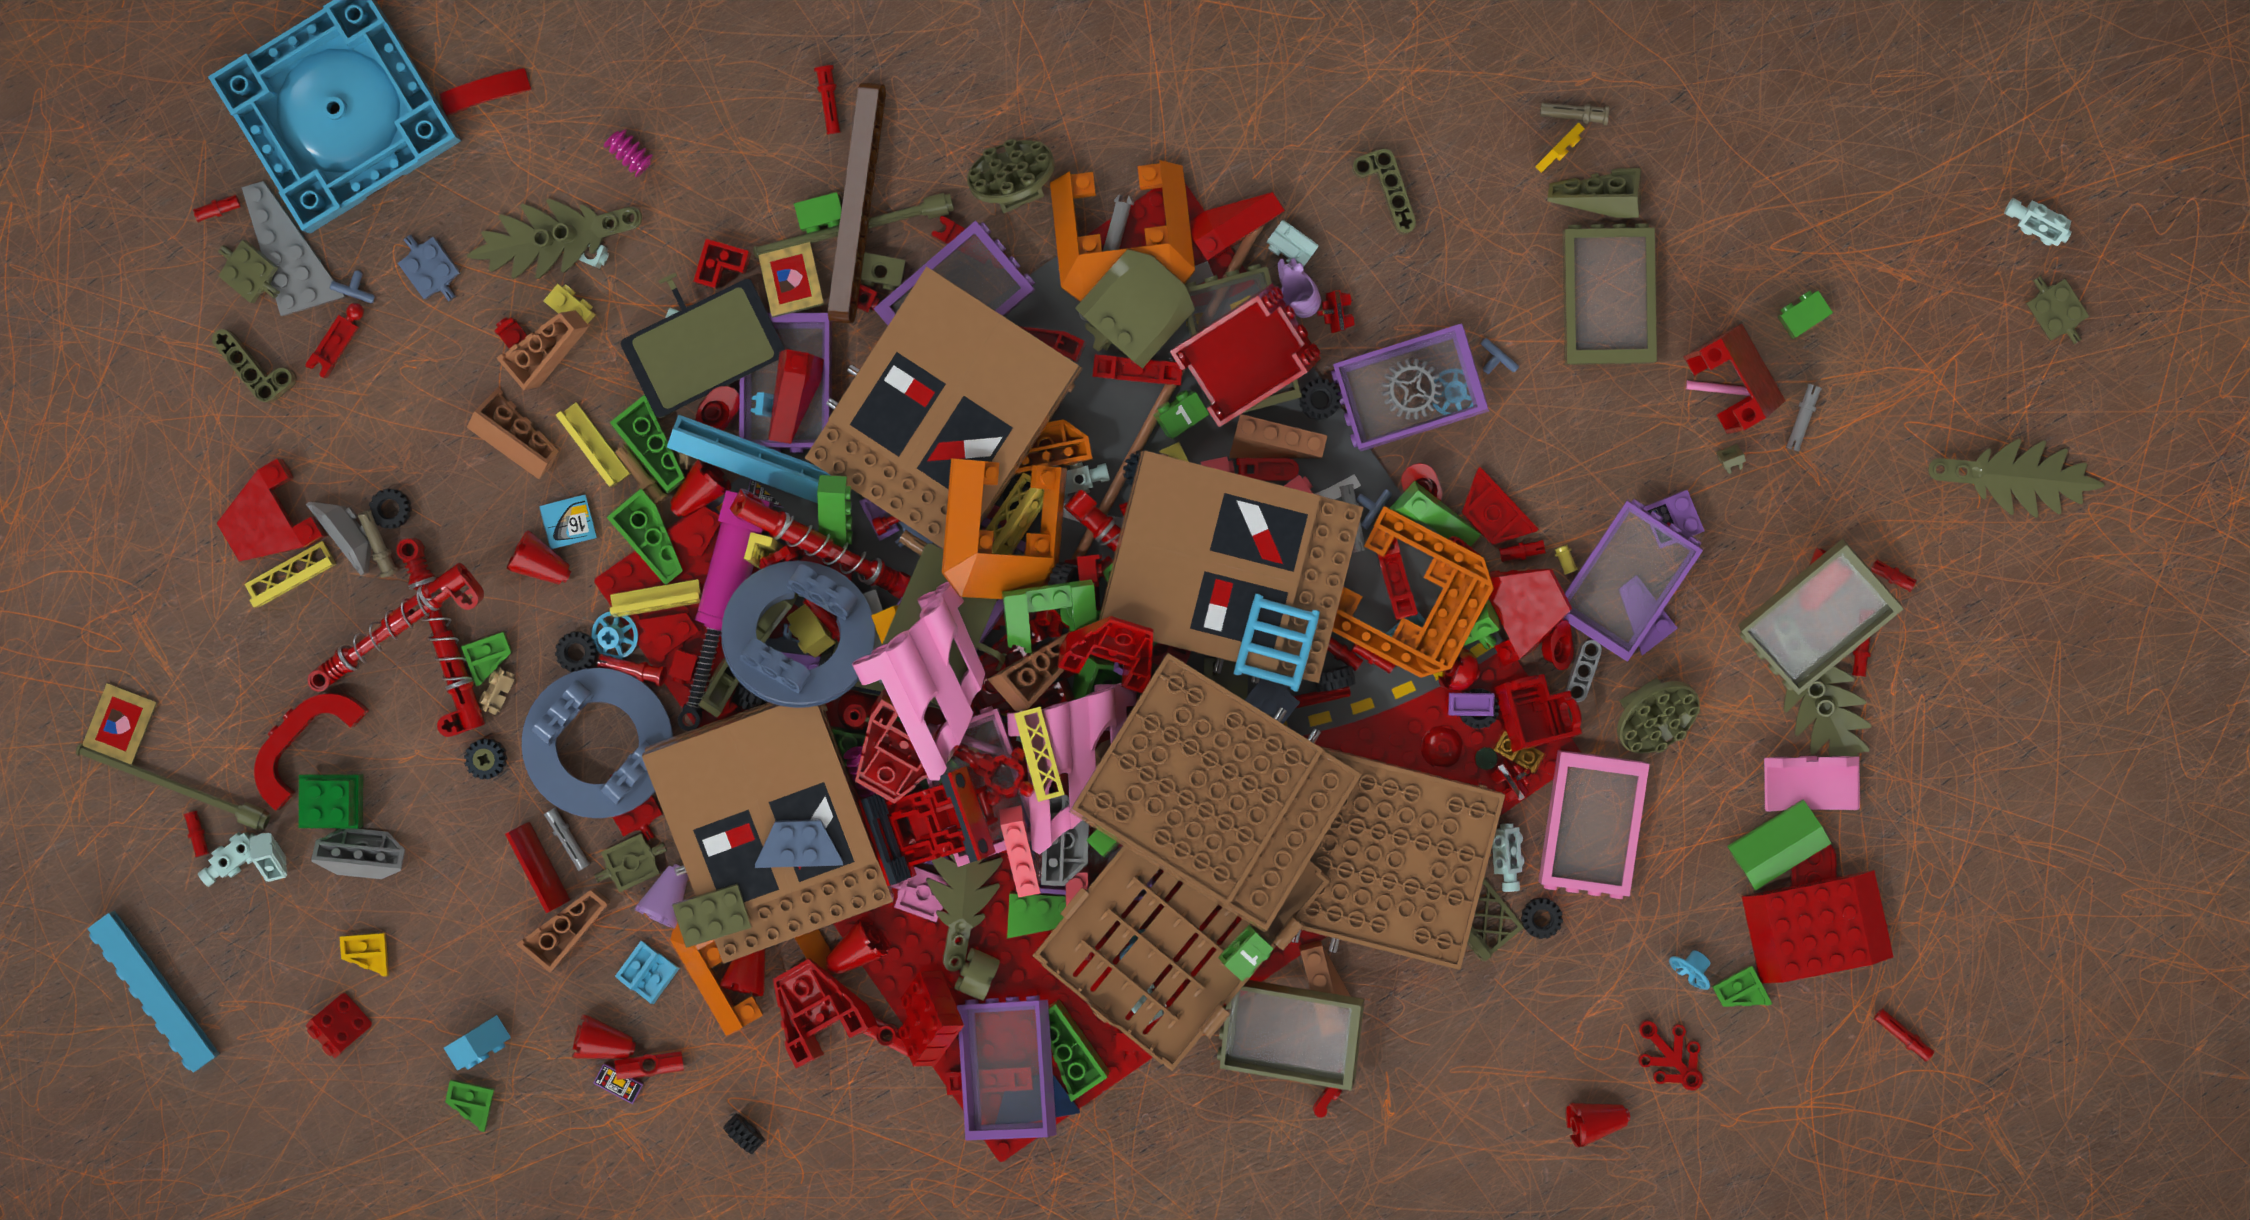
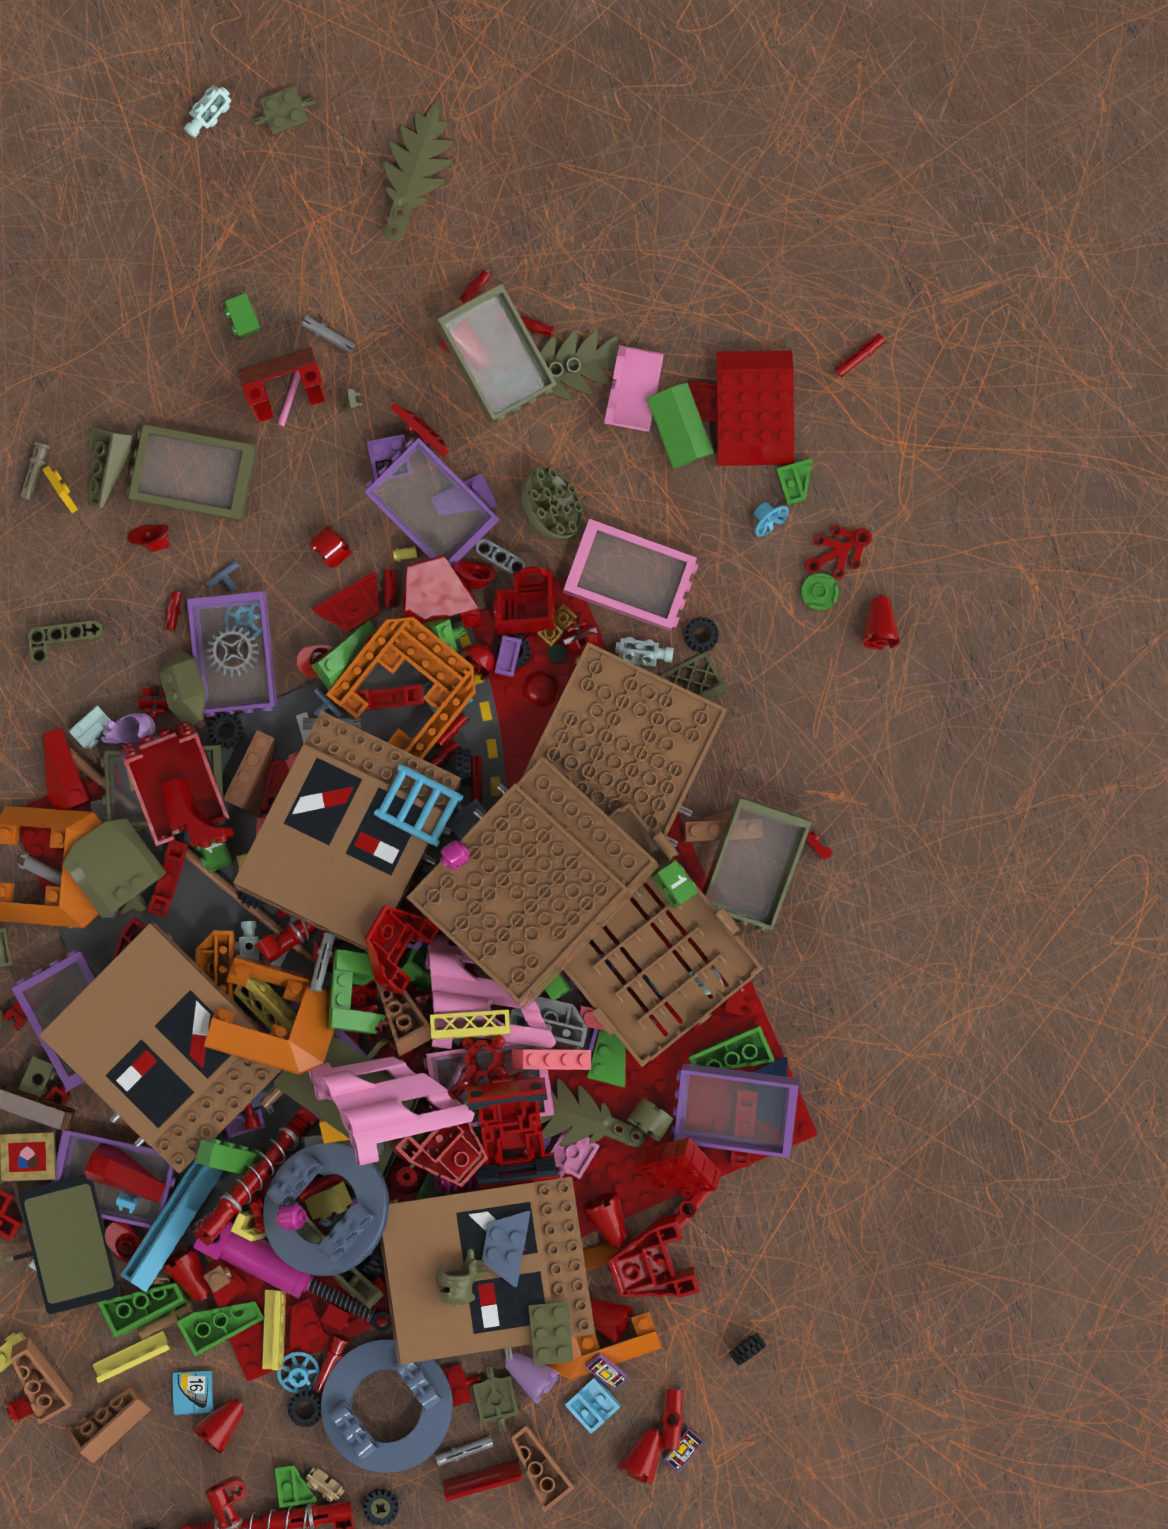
camera: 85 degrees left, 5 degrees down
(687, 980) = (606, 1371): none -> tile
(699, 525) = (218, 1277): none -> medium nougat brick
(743, 802) = (458, 1284): none -> olive piece
(780, 597) = (291, 1217): none -> dark pink head
(1102, 569) = (324, 954): none -> light grey pin
(1211, 377) = (185, 815): none -> red arch
(1226, 699) = (454, 855): none -> dark pink head
(1360, 340) = (183, 687): none -> olive wedge
(1445, 308) = (173, 611): none -> red pin
(1526, 264) = (150, 536): none -> red piece
(1556, 474) = (331, 546): none -> red brick
(1619, 1043) = (819, 591): none -> bright green tile
(1718, 542) = (426, 433): none -> red wing

